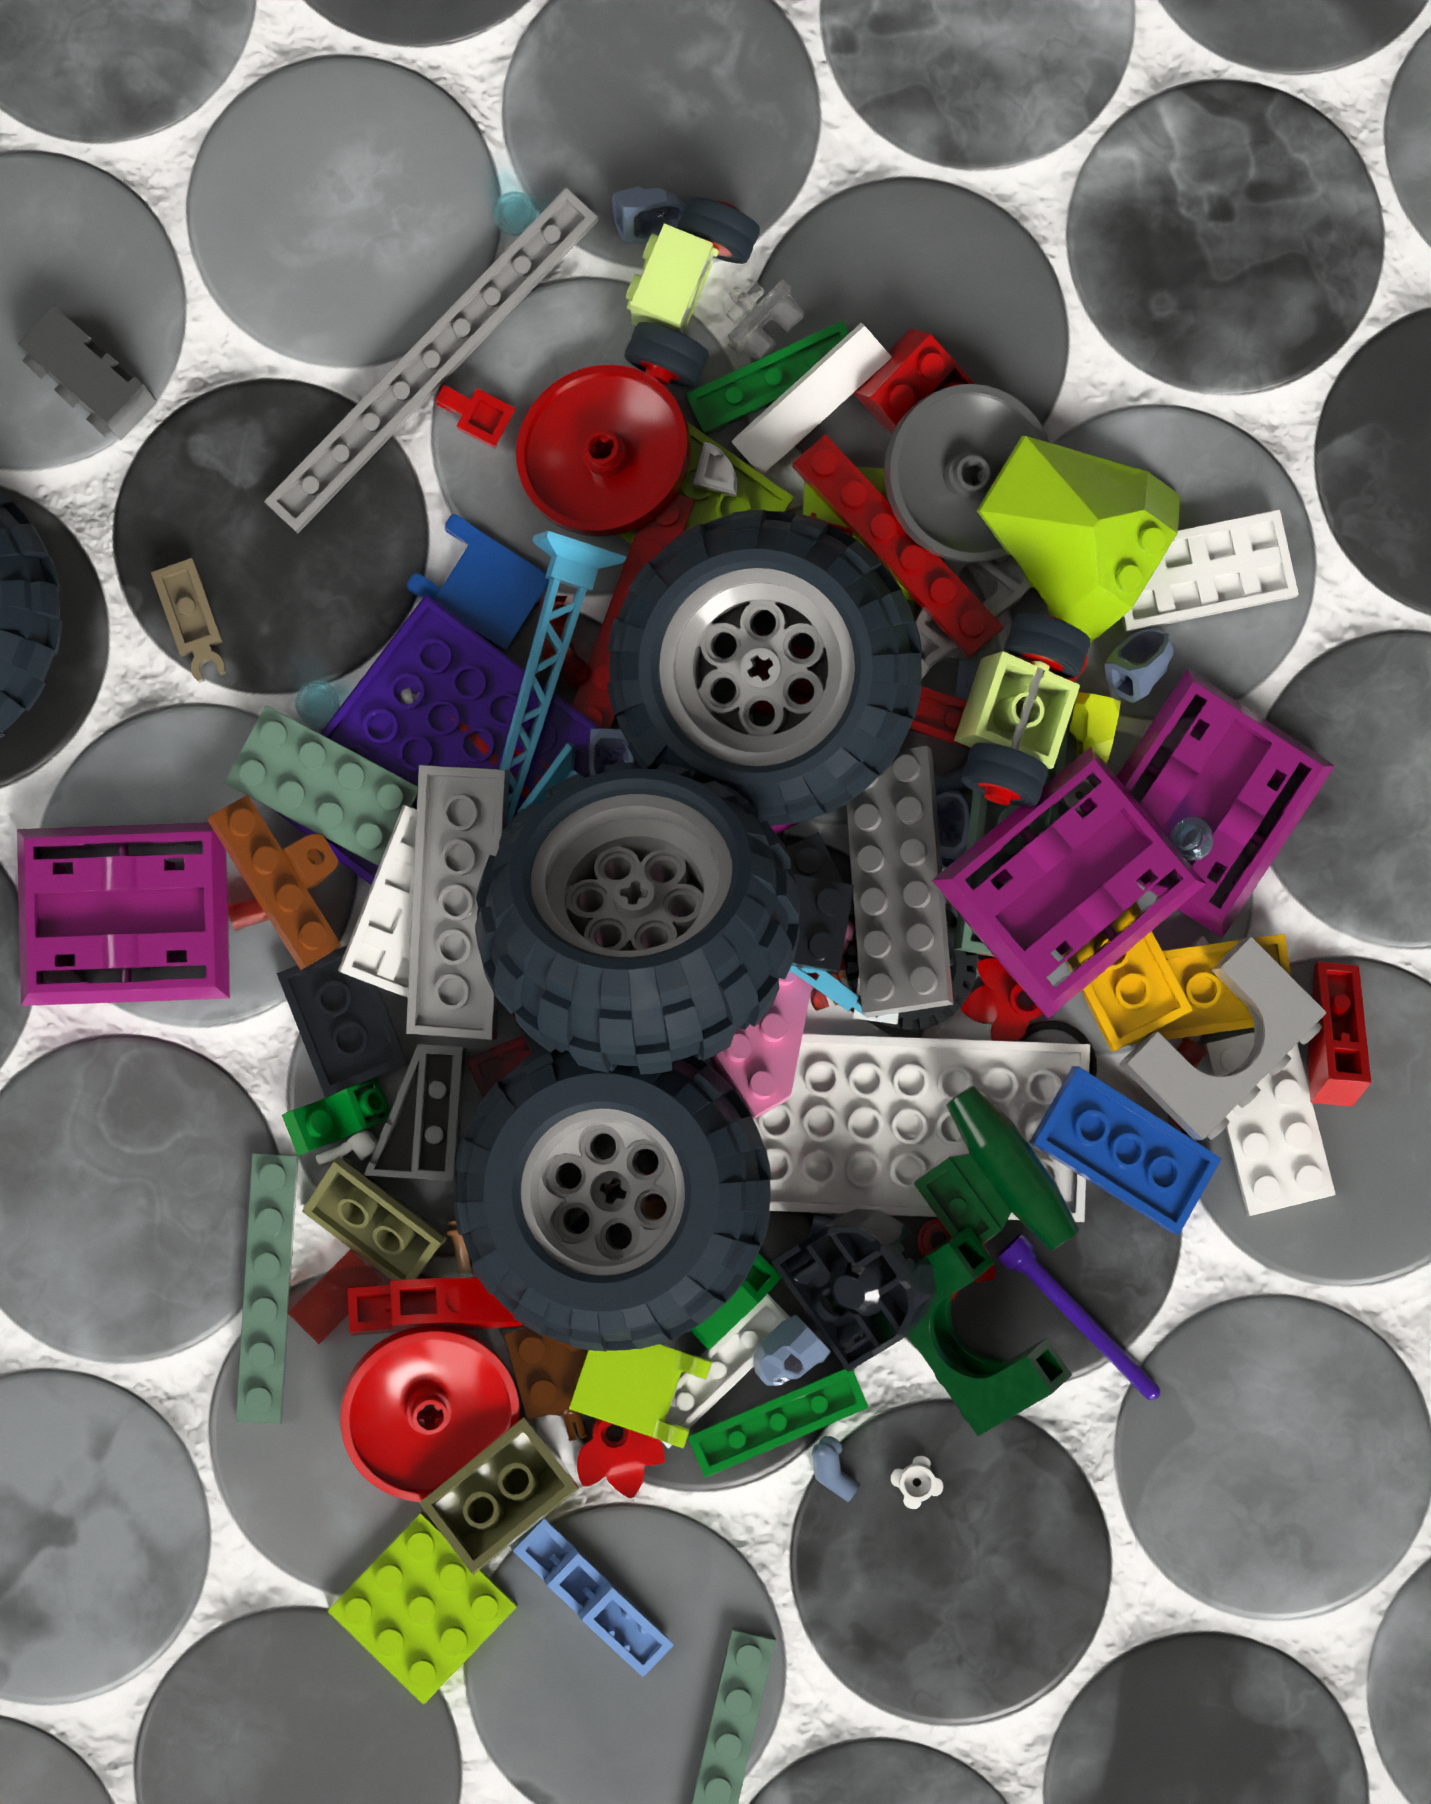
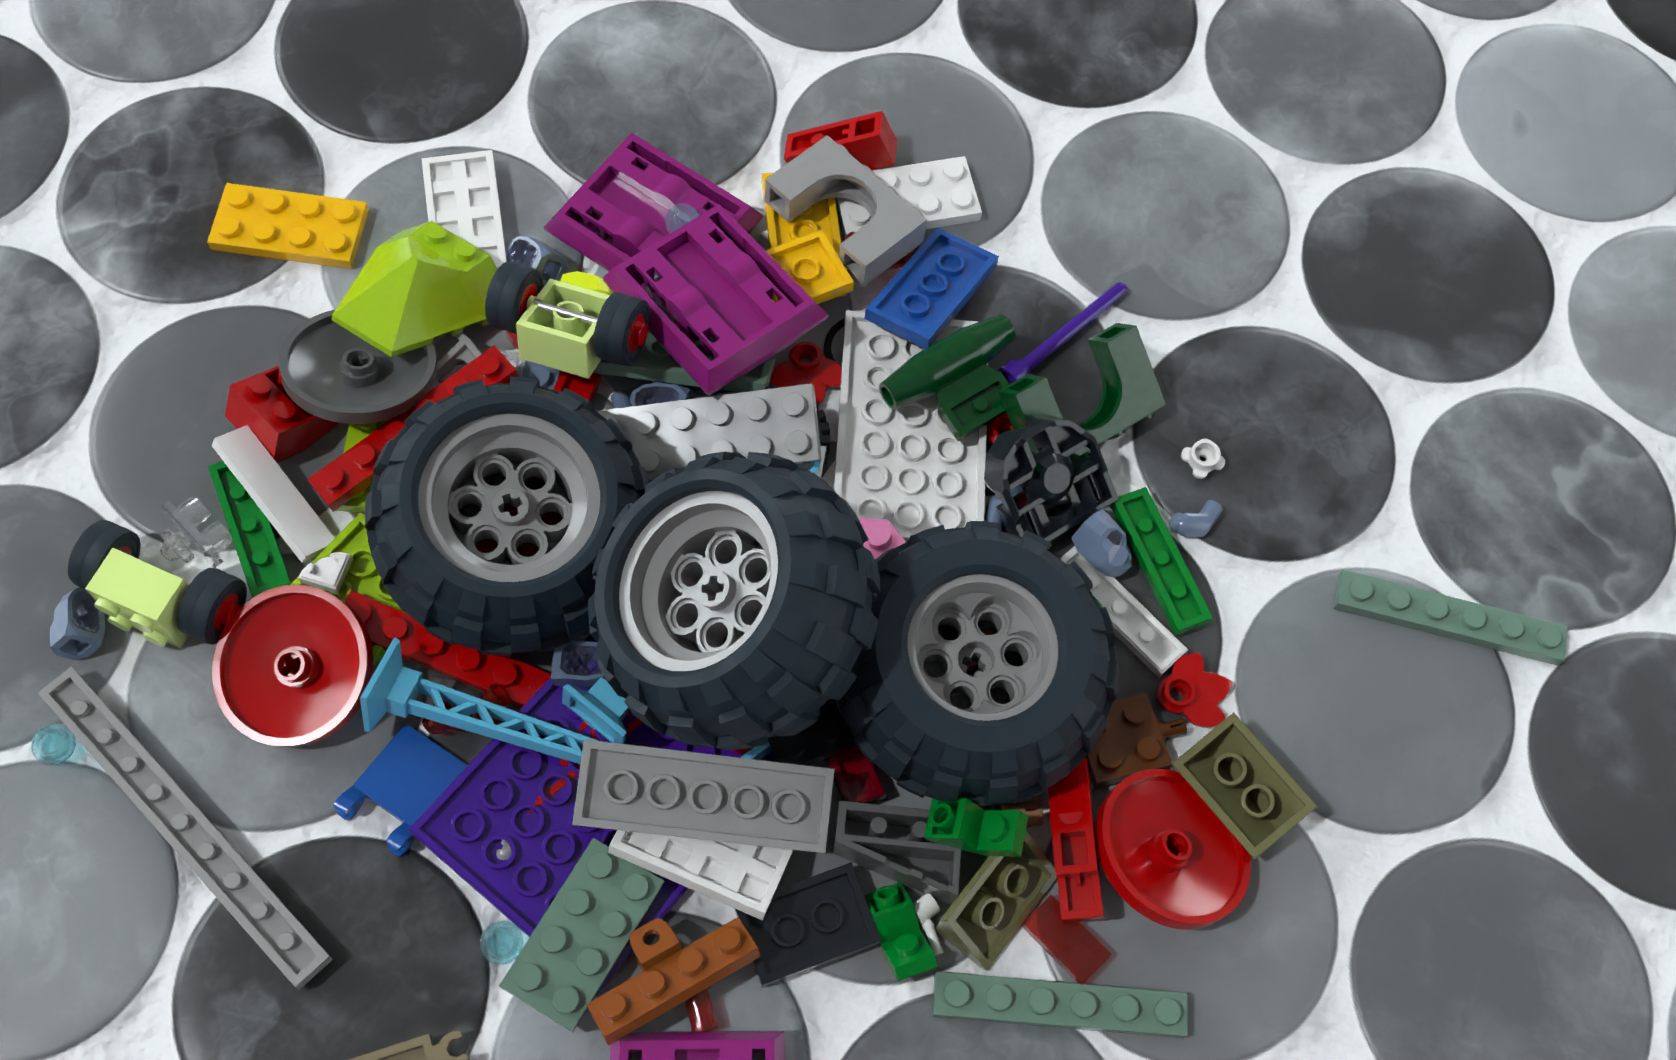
camera: 90 degrees left, 20 degrees down
(421, 1609) = (1343, 868): lime plate -> none
(431, 1194) = (975, 829): none -> green slope
(481, 416) = (241, 778): red plate -> none
(592, 1596) = (1323, 712): medium blue slope -> none
(636, 1388) = (1145, 667): lime flag -> none
(1179, 361) = (288, 226): none -> yellow plate

